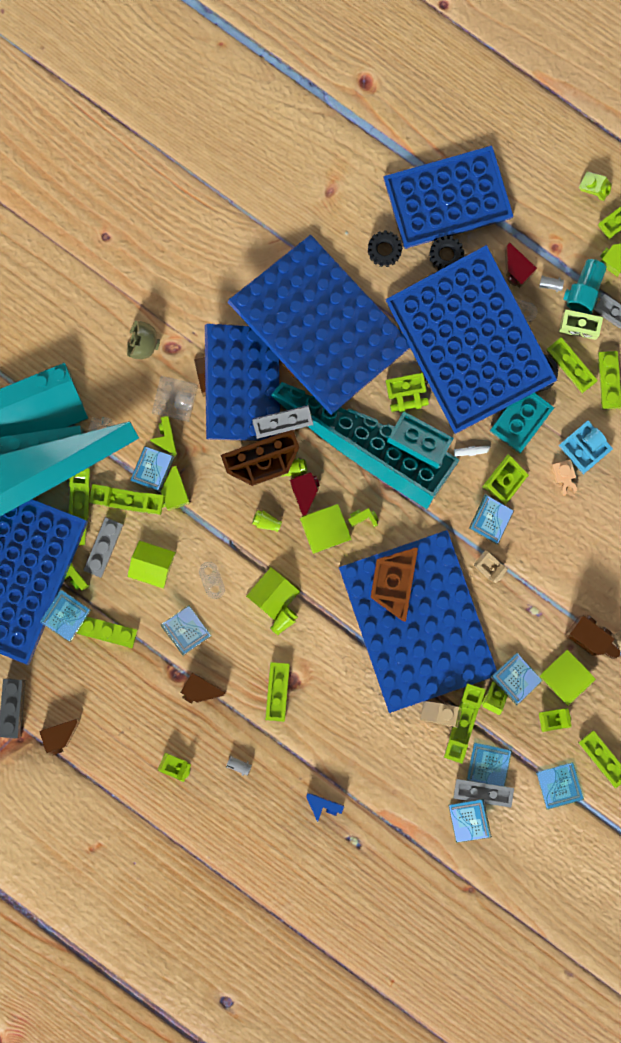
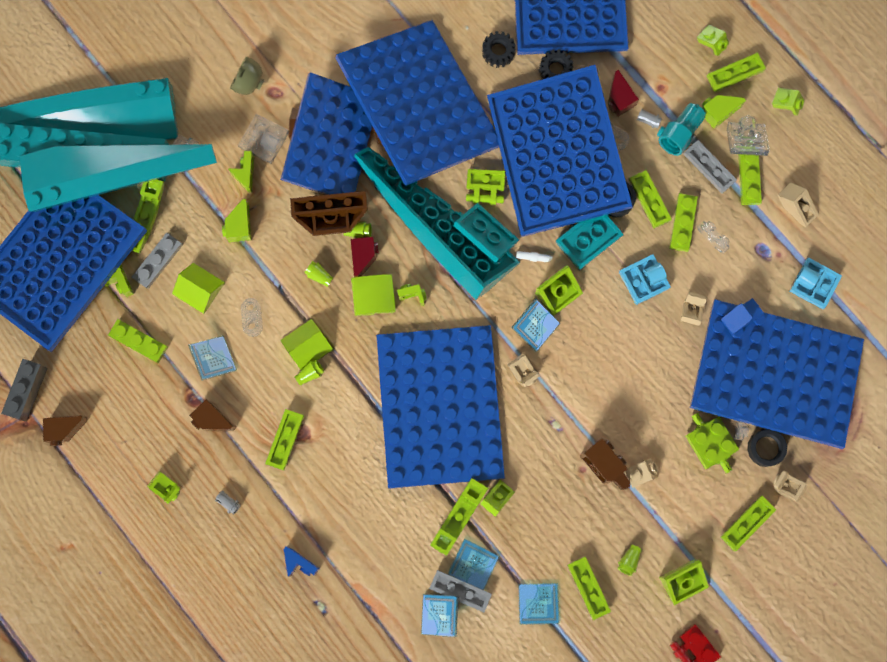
camera: 15 degrees right, 5 degrees down
(65, 616) = (100, 314): clear light blue piece -> none
(126, 499) = (190, 221): lime slope -> none
(152, 468) = (223, 197): piece -> none
(282, 421) = (358, 181): light grey plate -> none
(394, 581) = (425, 360): dark orange wing -> none
(441, 713) = (439, 501): tan slope -> none
(516, 678) = (521, 486): piece -> none
(555, 719) = (549, 536): lime bracket -> none
(564, 473) = (618, 300): light nougat plate -> none
(567, 677) = (572, 497): lime slope -> none
(580, 324) = (668, 162): yellowish green brick -> none

